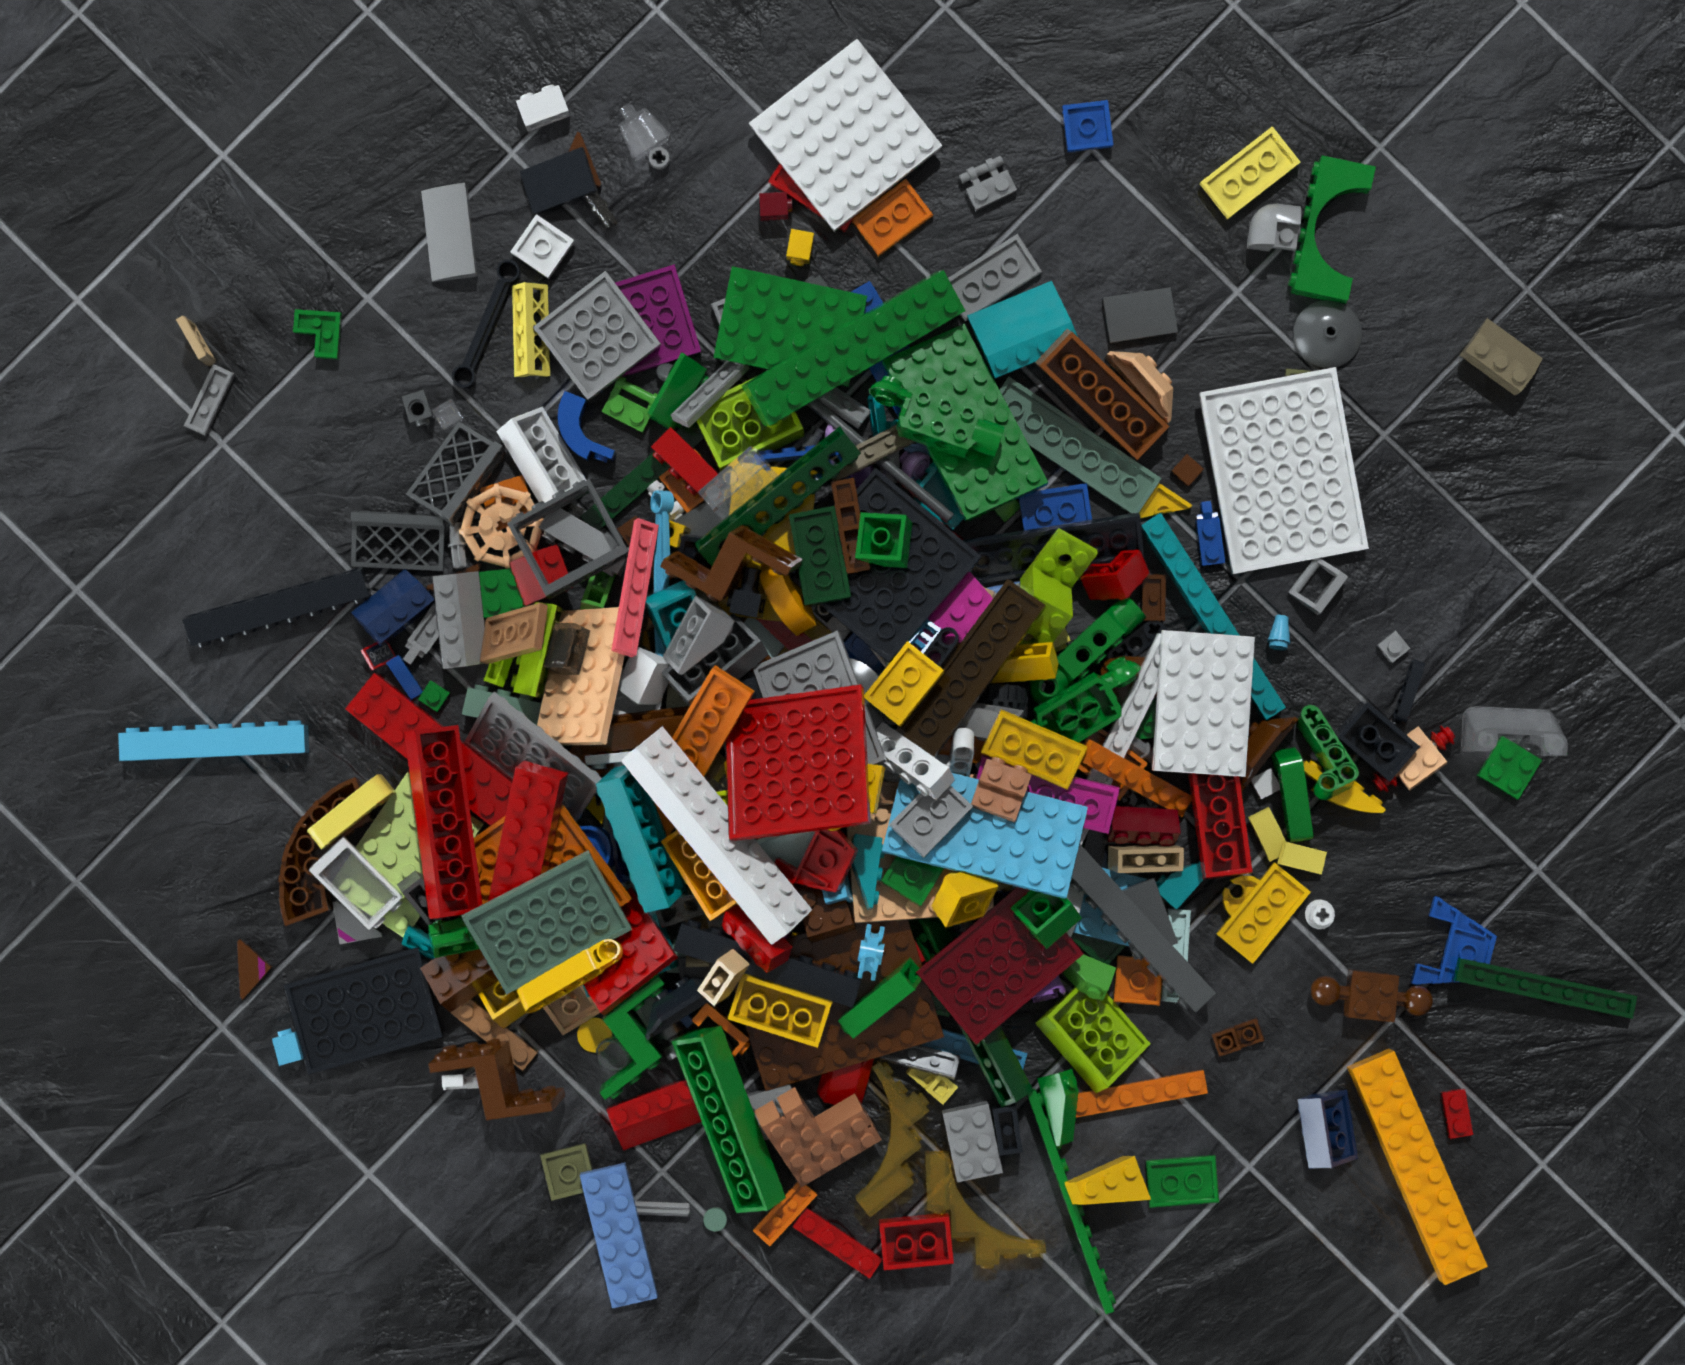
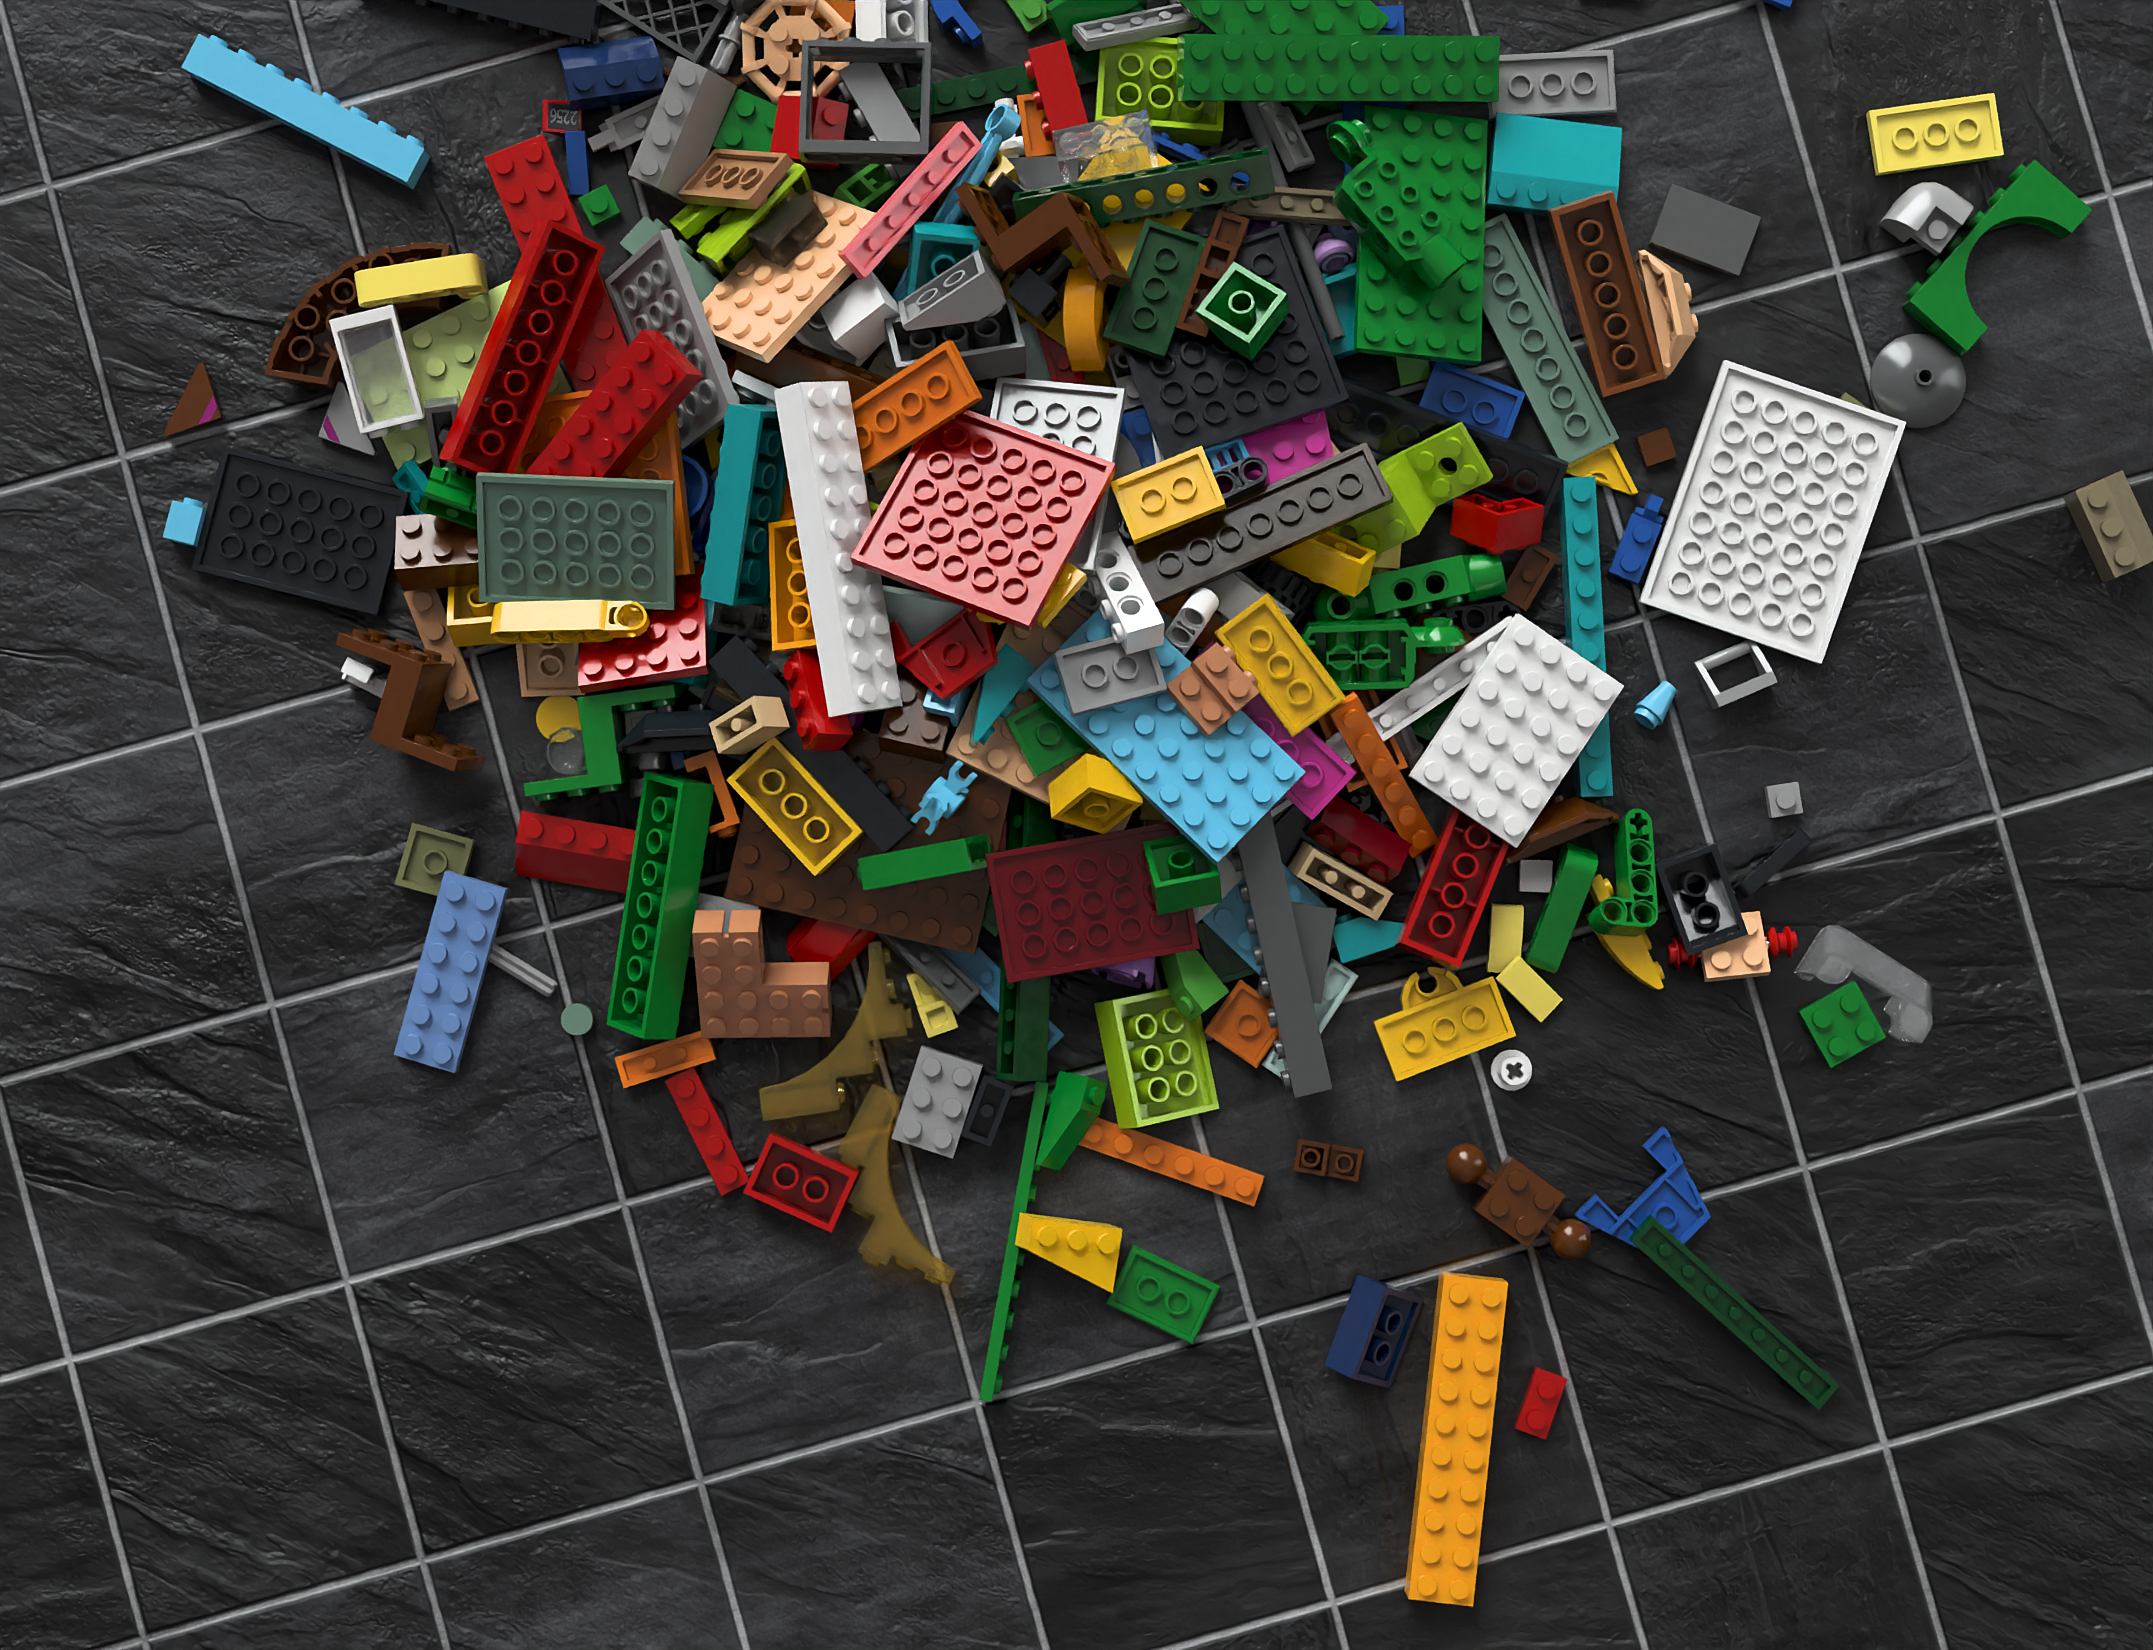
camera: 30 degrees right, 0 degrees up
(878, 417) = (1321, 169): teal piece -> none

